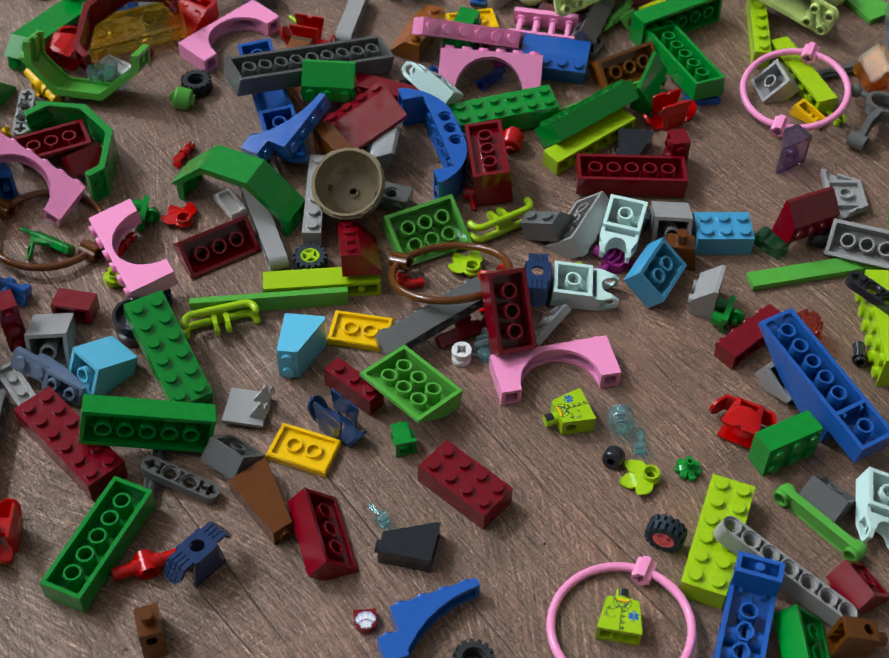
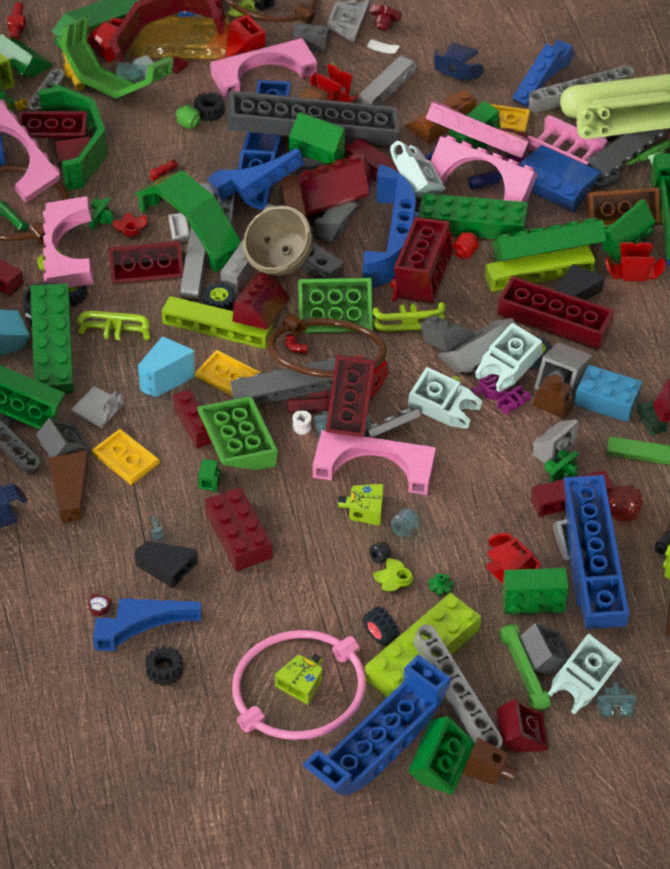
camera: 25 degrees right, 0 degrees up
(124, 245) = (70, 235): red piece -> none
(279, 300) = (173, 325): bright green tile -> none
(321, 535) = (100, 527): dark red slope -> none
(331, 421) = (157, 435): dark blue piece -> none
(465, 264) = (355, 345): lime plate -> none
(539, 285) = (397, 381): dark blue piece -> none
(638, 447) = (408, 552): clear light blue hand -> none
(655, 272) = (516, 407): dark azure brick -> none
(677, 143) = (615, 298): dark red brick -> none

